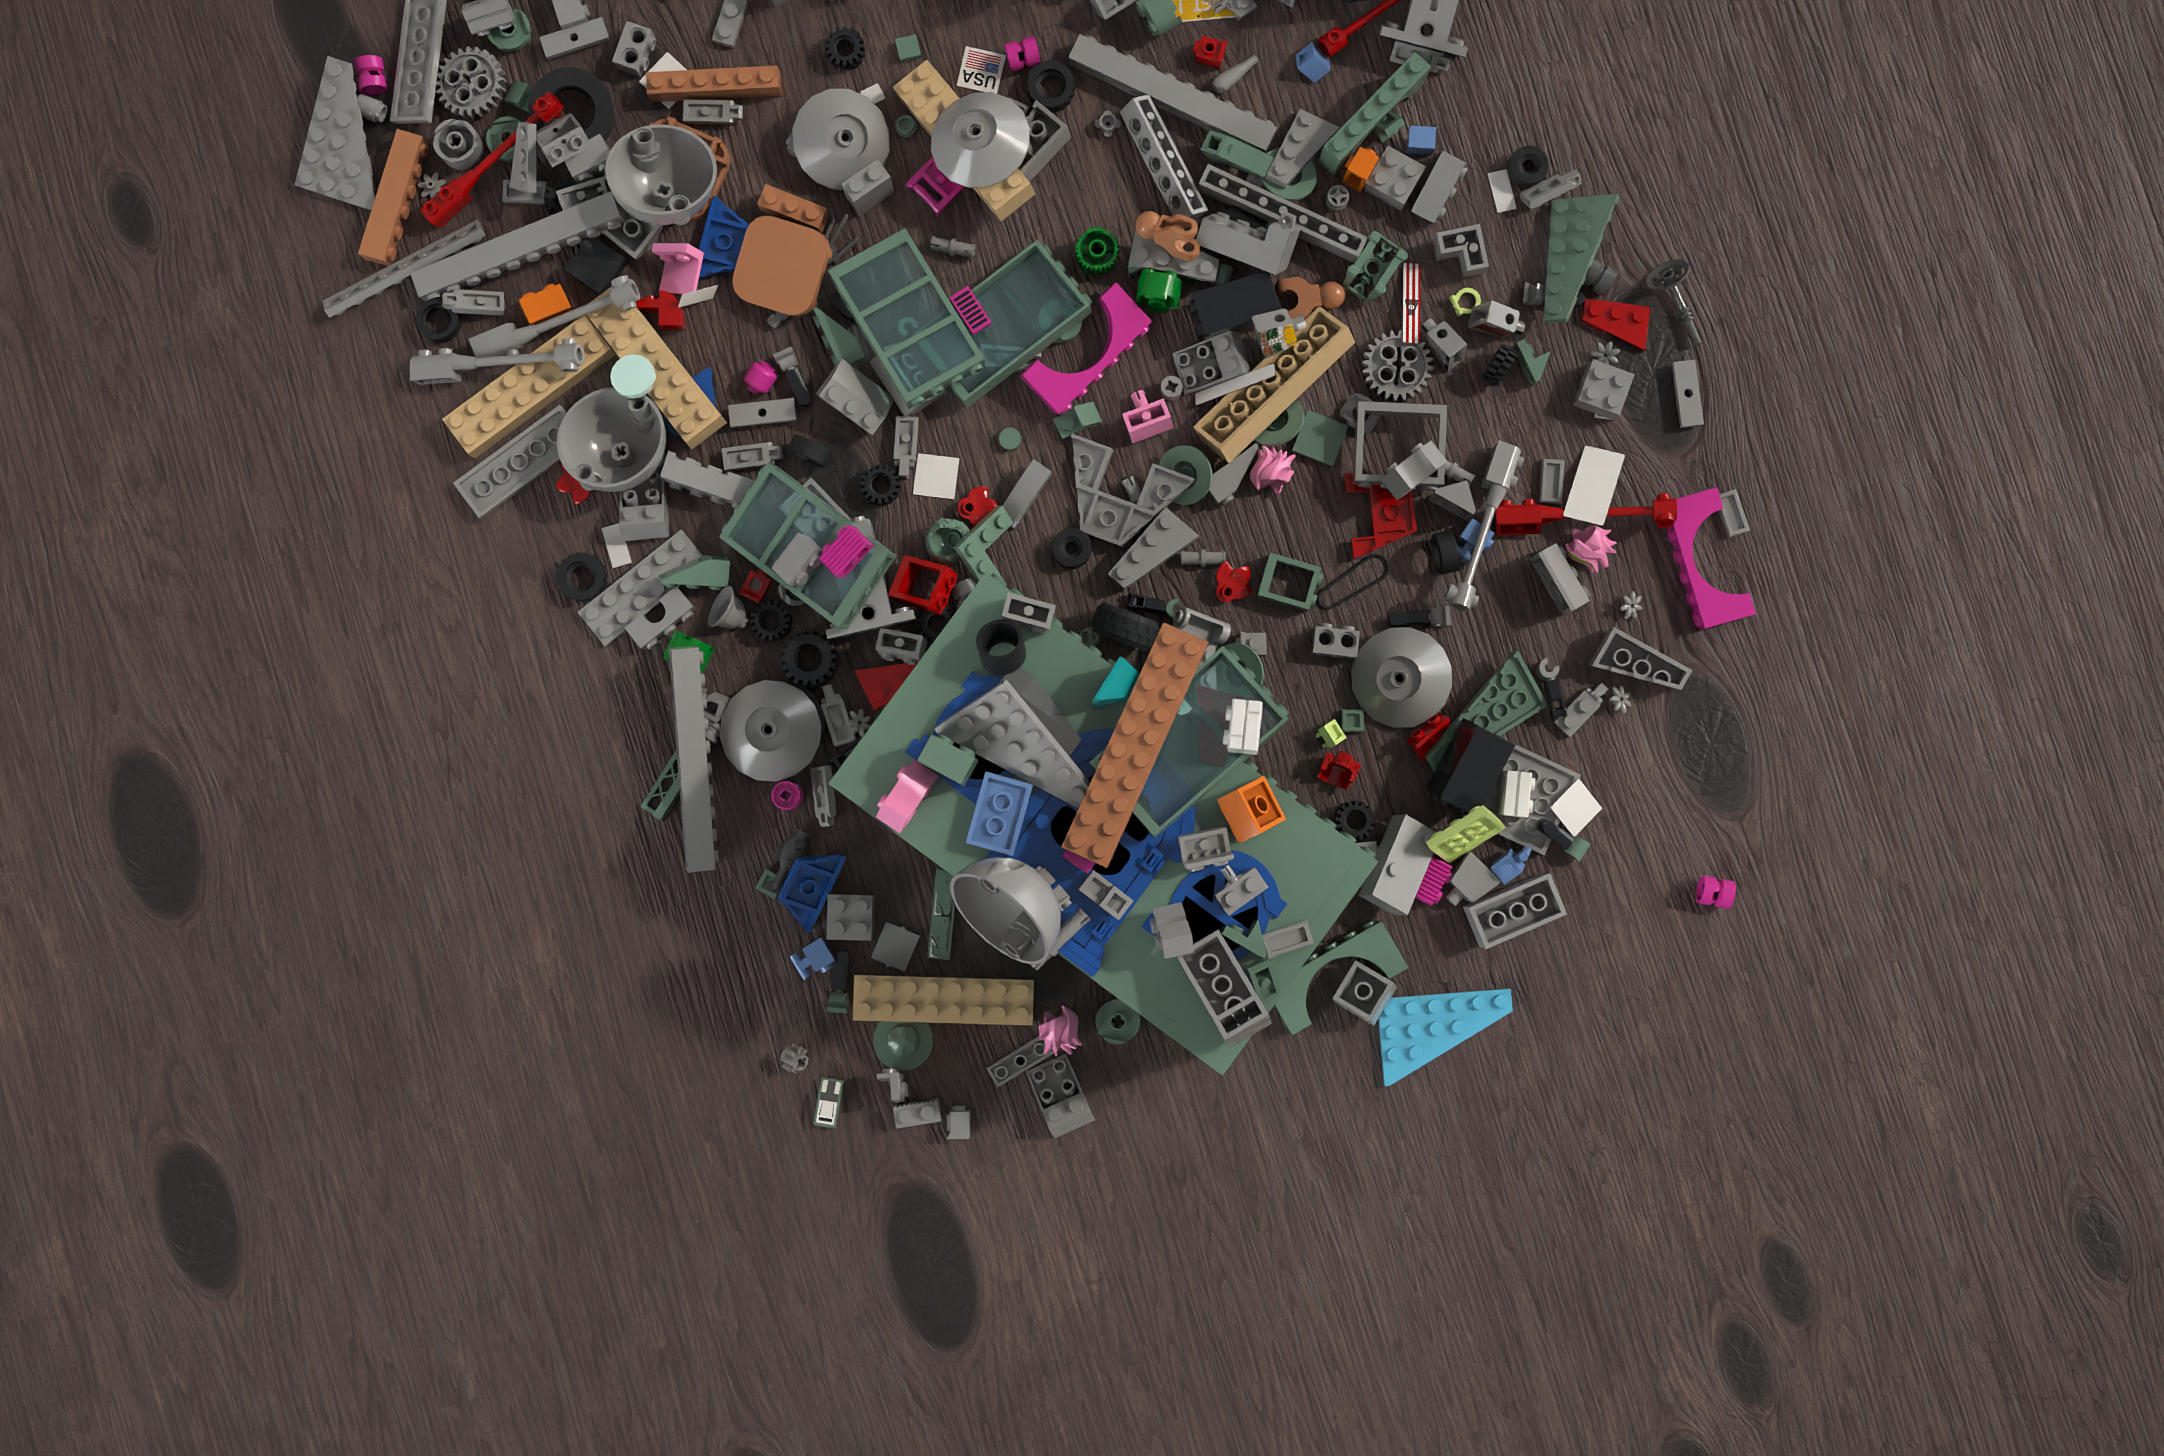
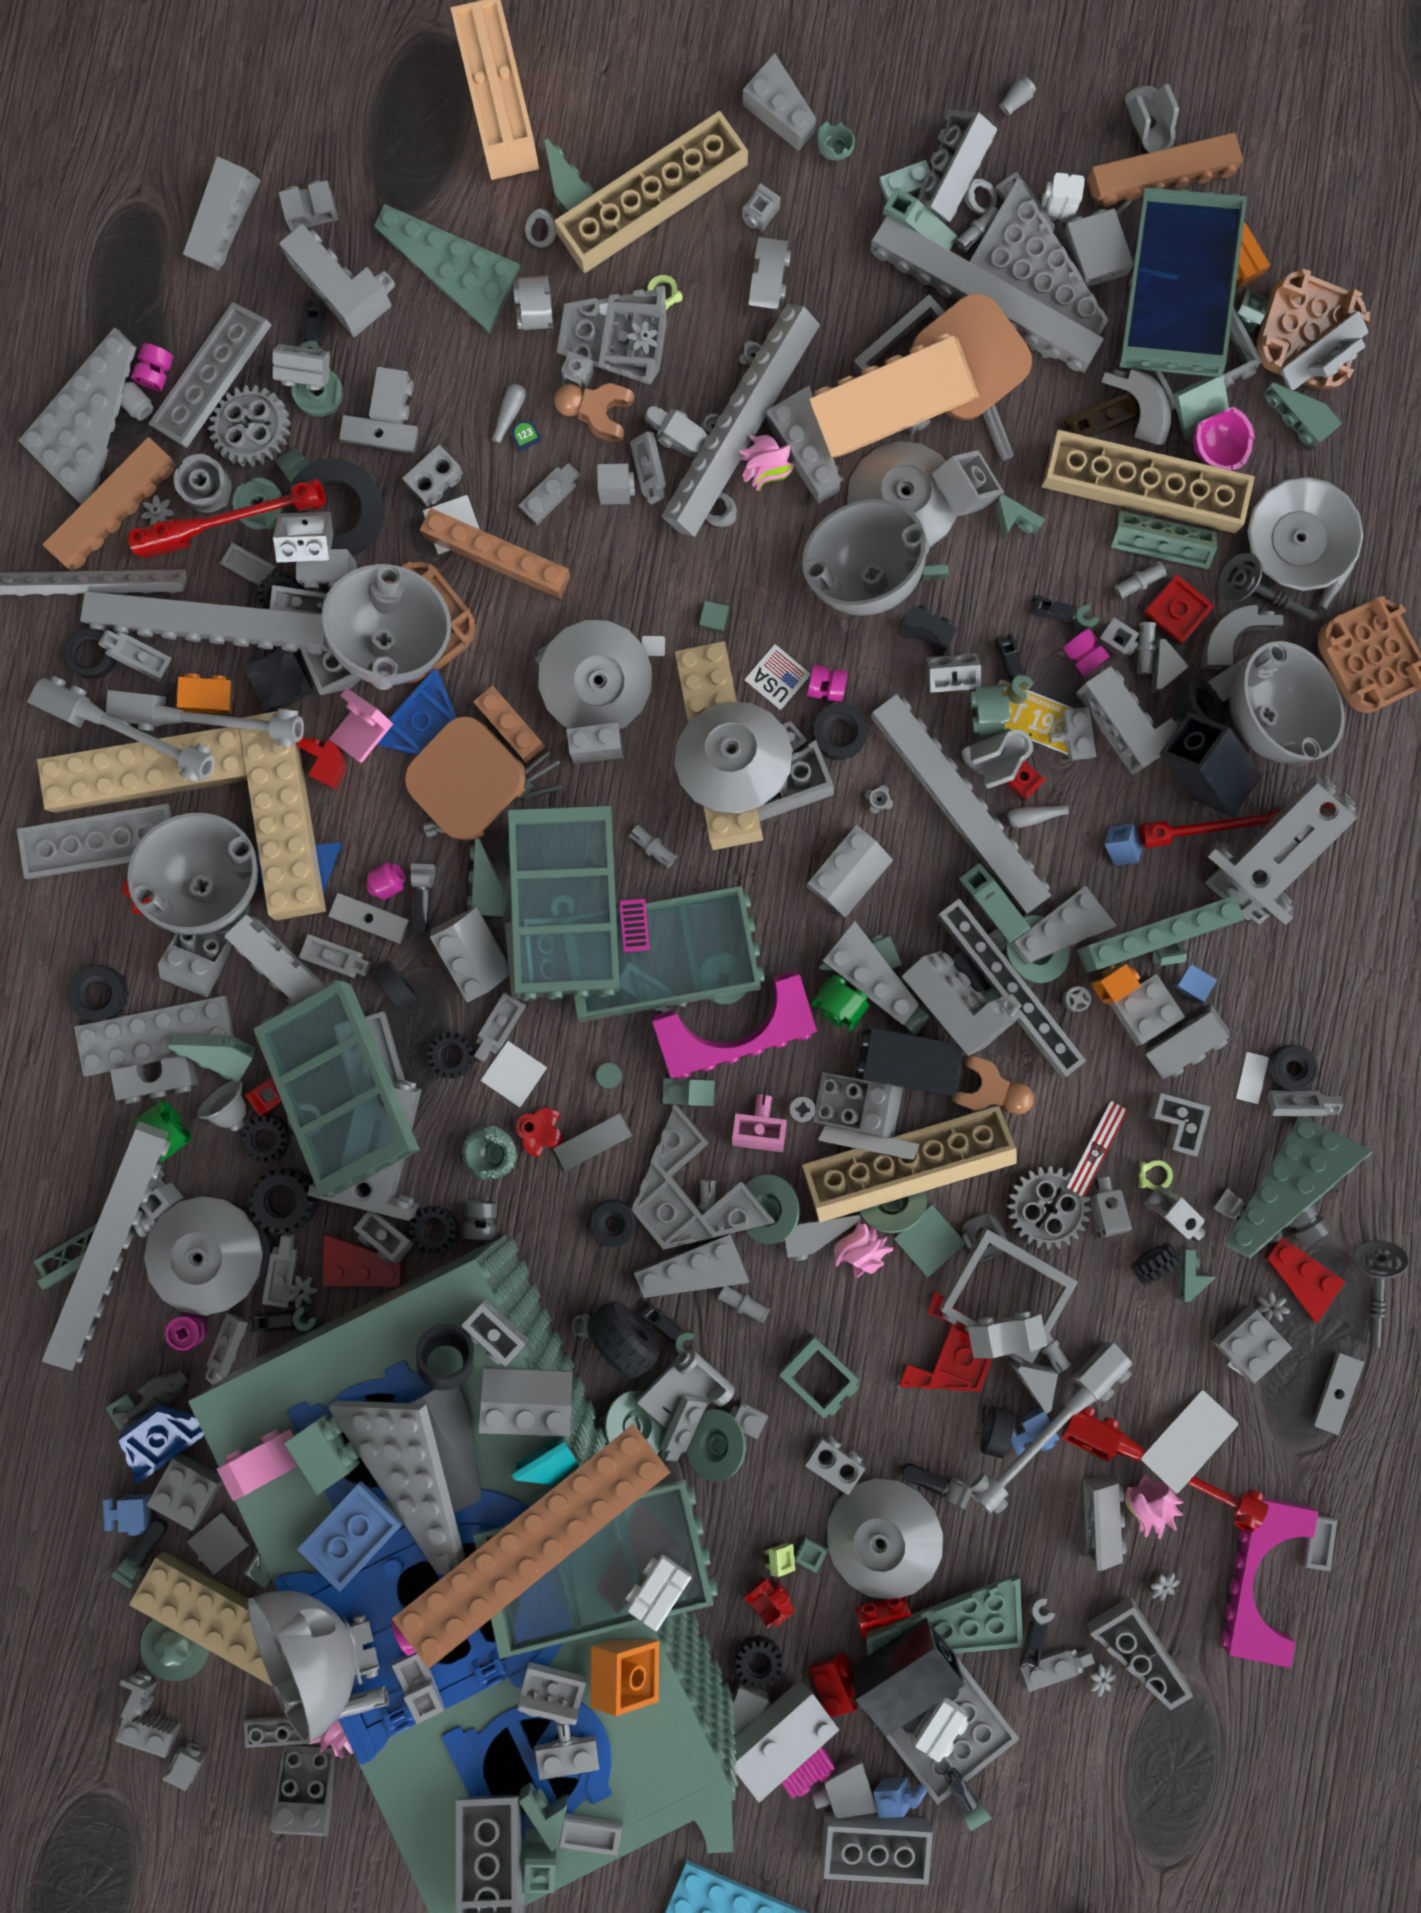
camera: 30 degrees right, 0 degrees up
(524, 160) = (257, 536): light grey wing -> none
(616, 546) = (149, 980): white sticker -> none
(633, 376) = (249, 819): light aqua tile -> none
(697, 296) = (364, 765): white sticker -> none
(711, 112) = (478, 580): light grey hinge -> none
(794, 1058) = (51, 1609): light grey gear -> none
(798, 560) = (315, 1104): light grey brick -> none
(828, 1102) = (64, 1672): slope -> none
(841, 36) = (656, 571): black tyre -> none
(845, 551) = (365, 1124): dark pink brick -> none
(905, 126) = (670, 696): sand green plate -> none
(906, 577) = (423, 1169): red window -> none
(939, 182) = (667, 759): dark pink plate -> none
(973, 545) = (517, 1169): sand green plate -> none
(1077, 653) = (526, 1402): none -> light grey slope
(1097, 263) = (810, 922): green brick -> none
(1114, 189) = (850, 871): none -> light grey slope
(1162, 158) = (915, 869): light grey brick -> none
(1169, 233) = (879, 954): nougat piece -> none
(1171, 52) = (997, 767): none -> light grey piece
(1172, 930) = (467, 1771): light grey brick -> none
(1235, 580) = (763, 1346): red plate -> none
(1276, 331) = (940, 1112): light grey torso -> none
(1358, 591) = (887, 1420): black piece -> none
(1364, 992) = (674, 1858): light grey brick -> none
(1385, 270) = (1084, 1104): sand green piece -> none
(1421, 806) = (834, 1685): none -> red bracket
(1465, 834) = (863, 1747): yellowish green plate -> none
(1551, 481) = (1147, 1410): light grey tile -> none
(1576, 807) = (996, 1771): white sticker -> none

